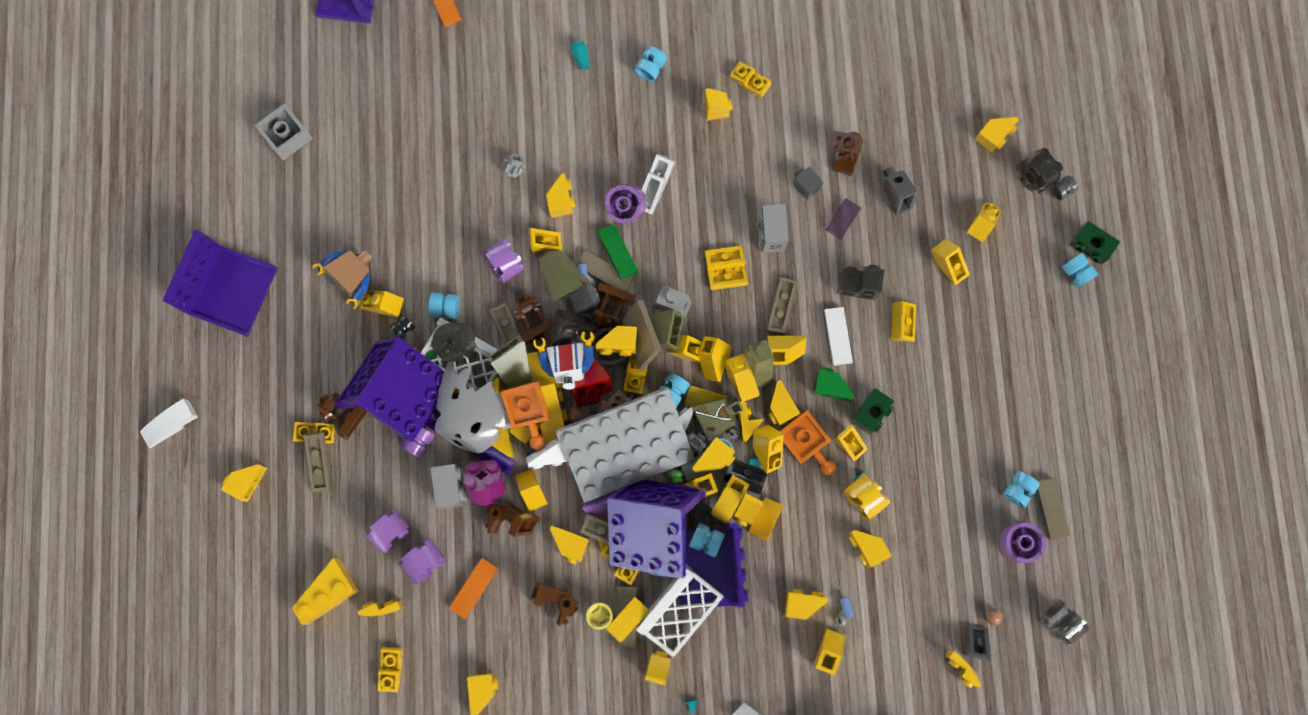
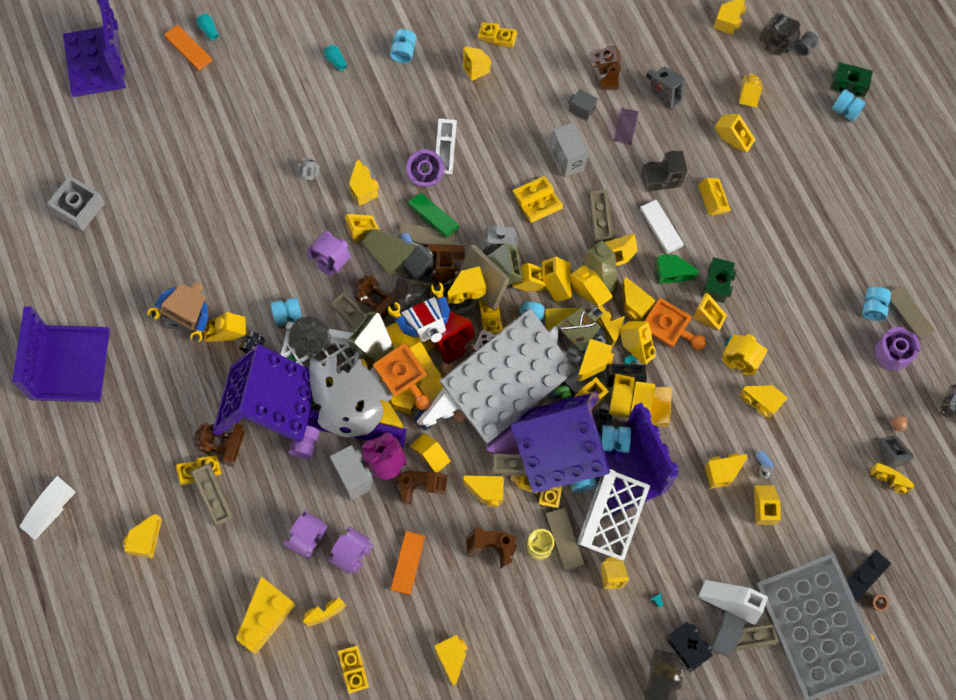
camera: 25 degrees left, 10 degrees down
(627, 619) = (568, 538): yellow slope -> none

